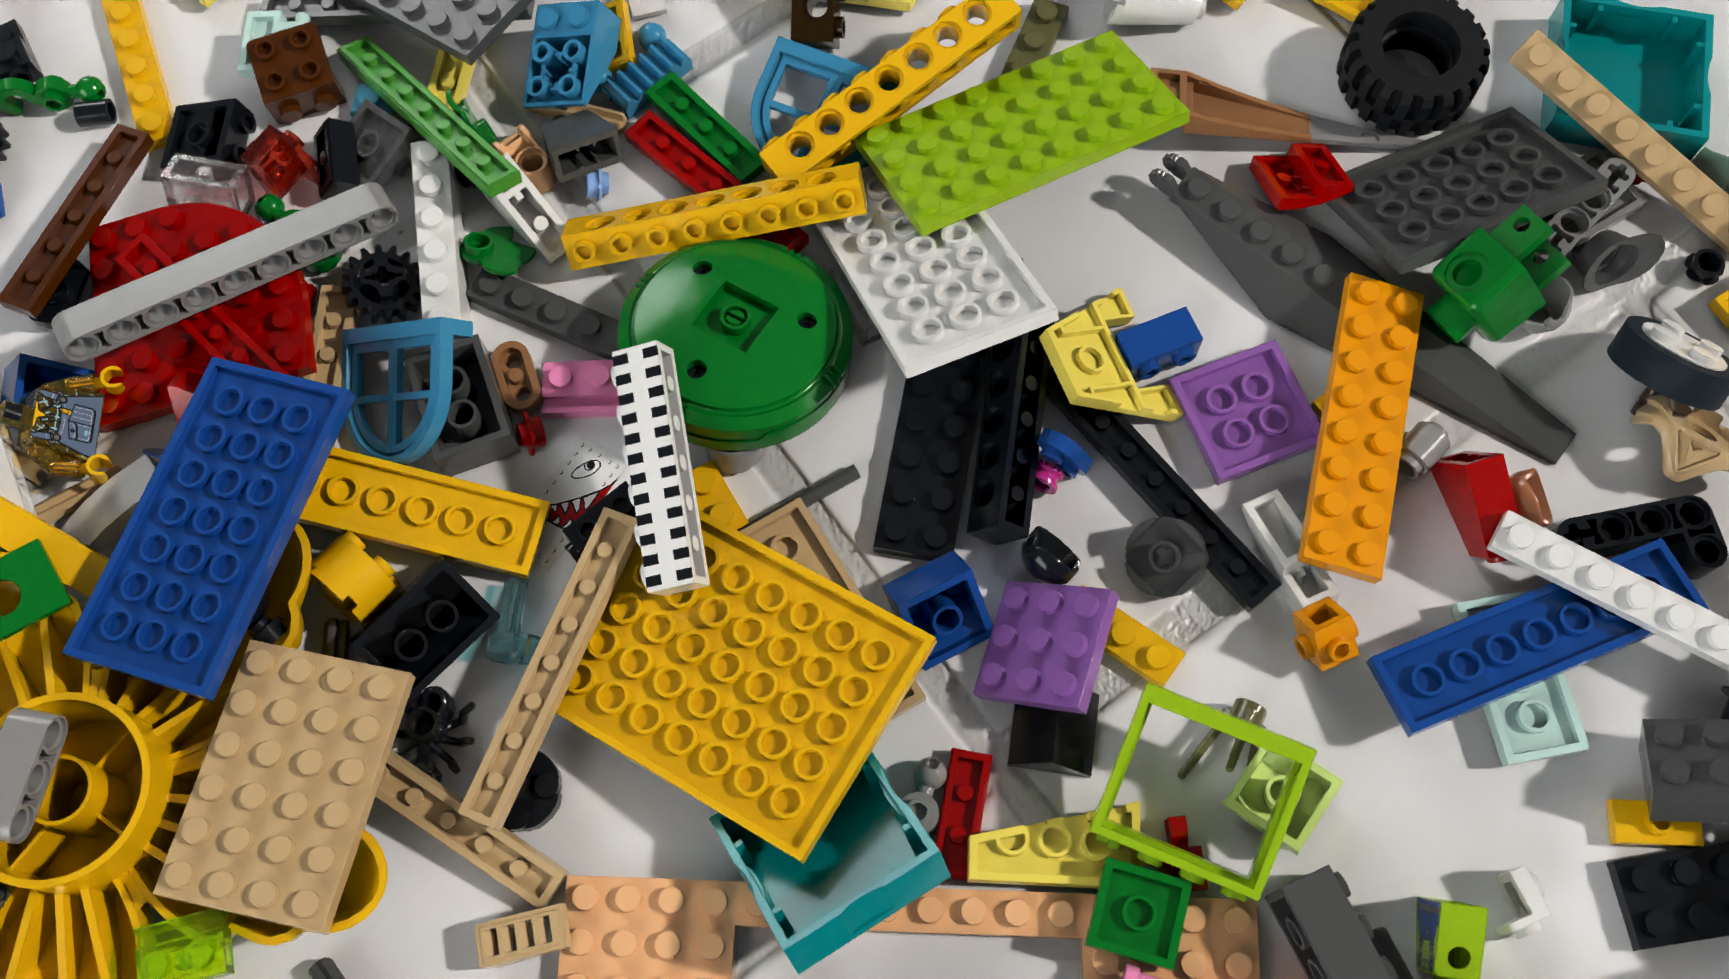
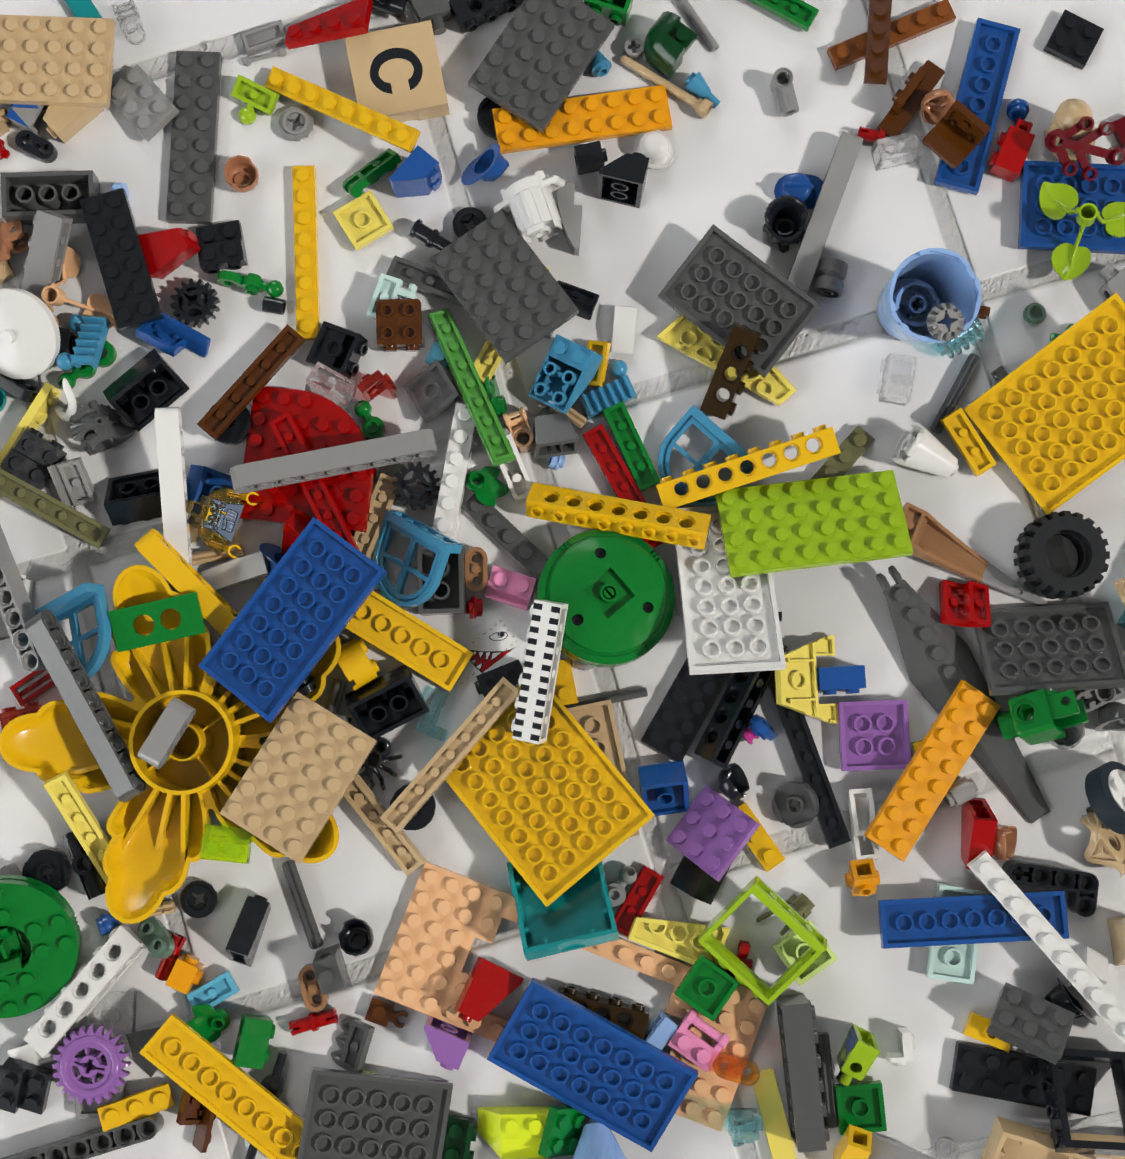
camera: 15 degrees right, 15 degrees up
(336, 158) = (409, 392): black slope -> none
(496, 943) = (380, 883): tan slope -> none

